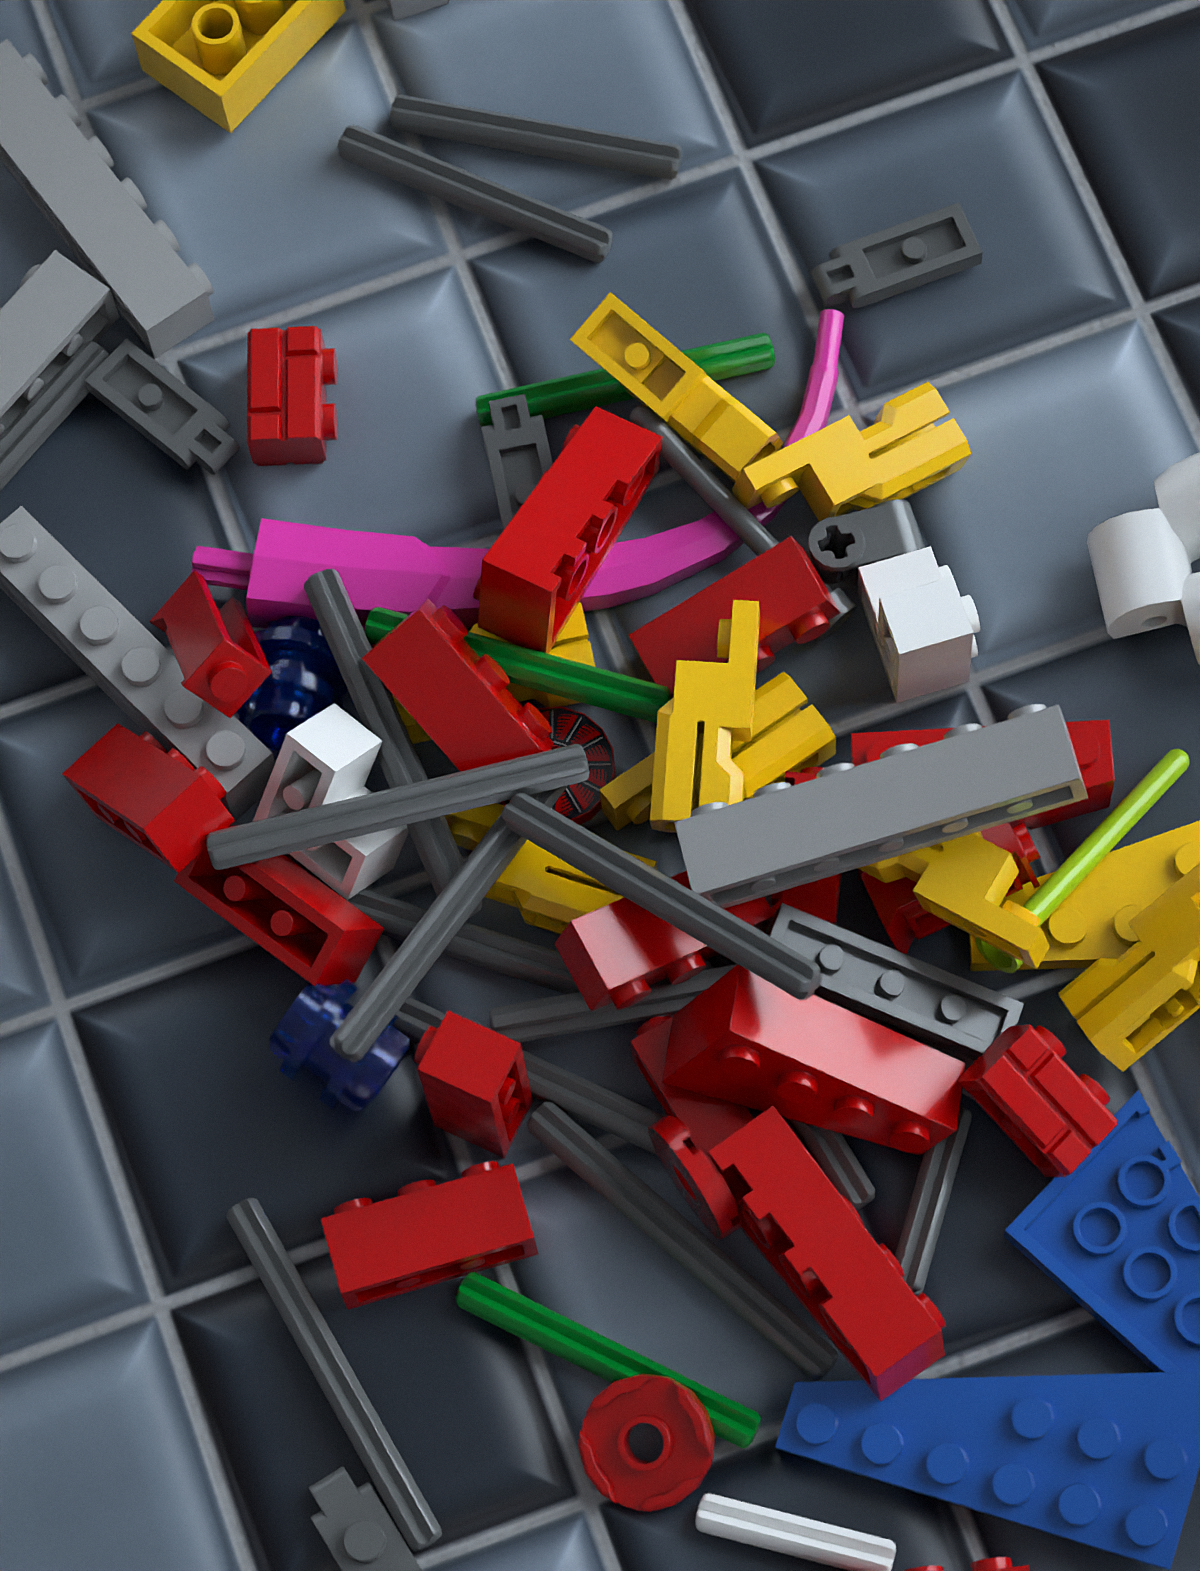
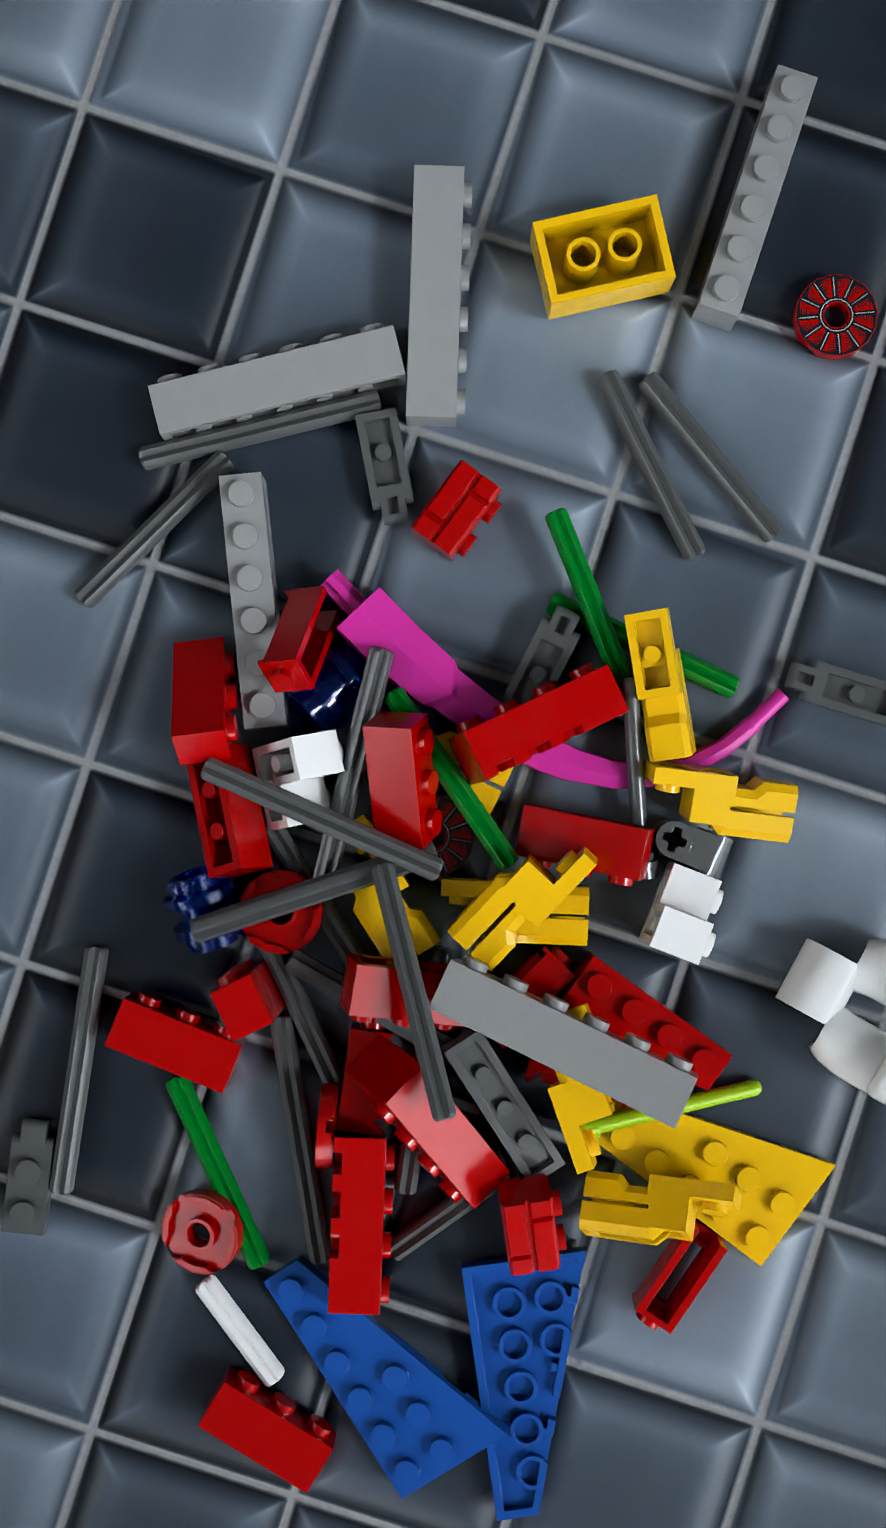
camera: 30 degrees right, 20 degrees up
(473, 988) = (284, 937): none -> red tile
(504, 358) = (588, 594): none -> green axle

